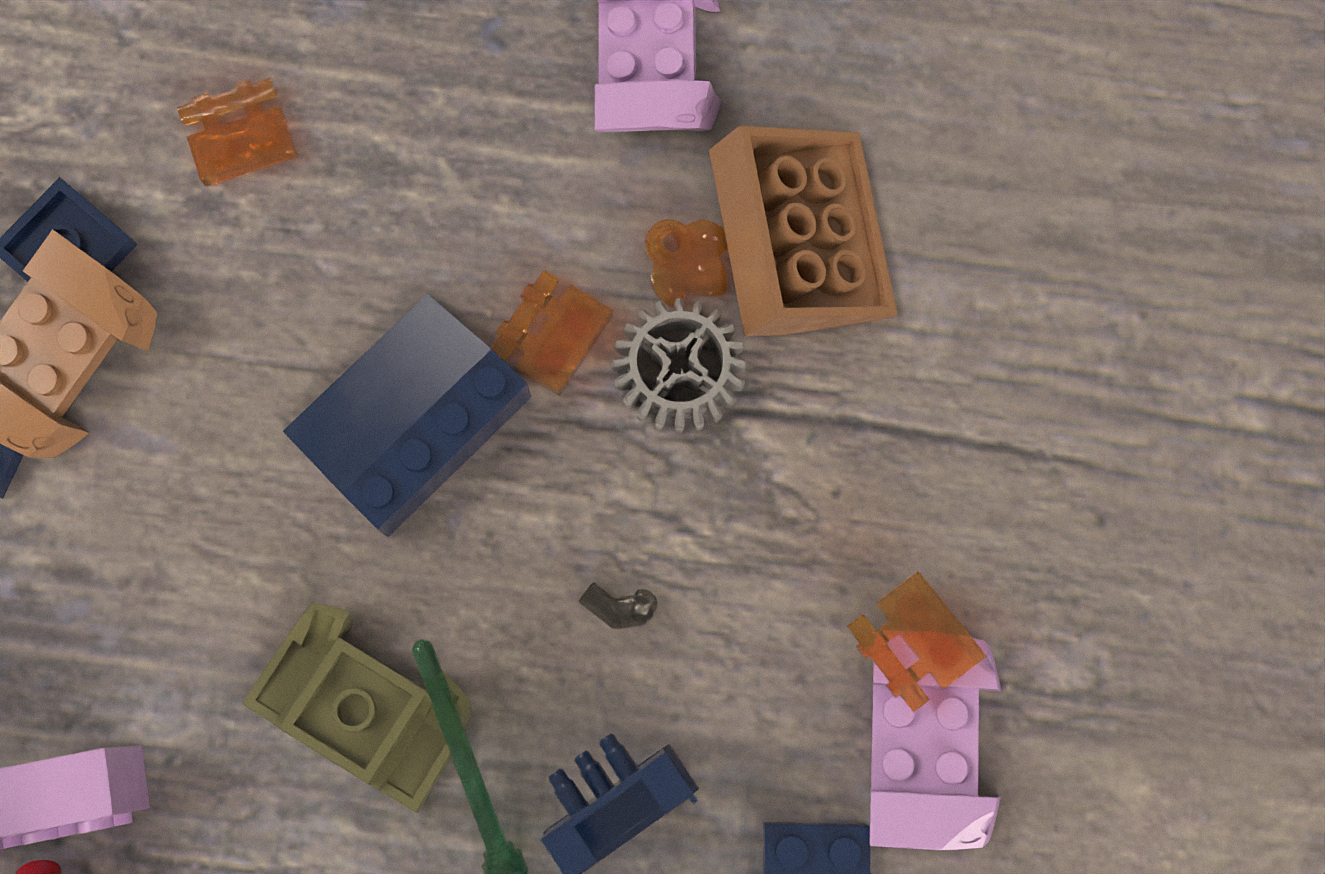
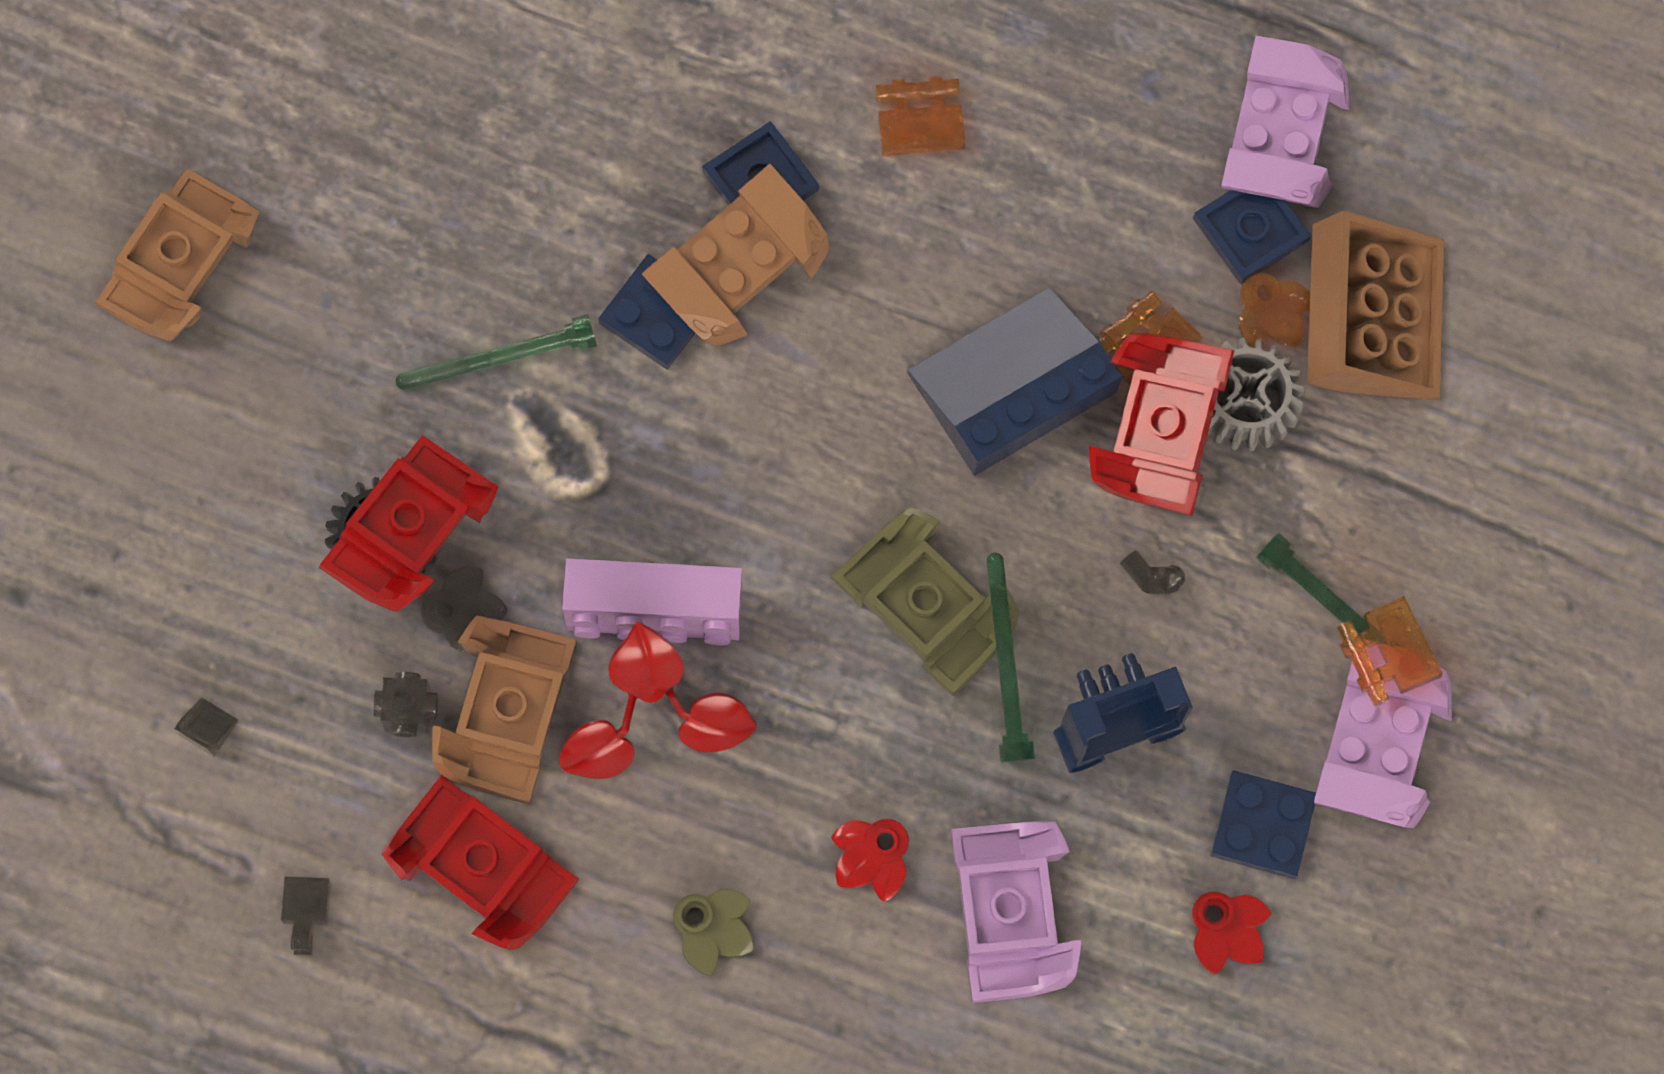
camera: 15 degrees right, 5 degrees down
(587, 421) = (1162, 421): none -> piece
(641, 174) = (1250, 231): none -> dark blue plate
(761, 547) = (1280, 556): none -> clear green piece

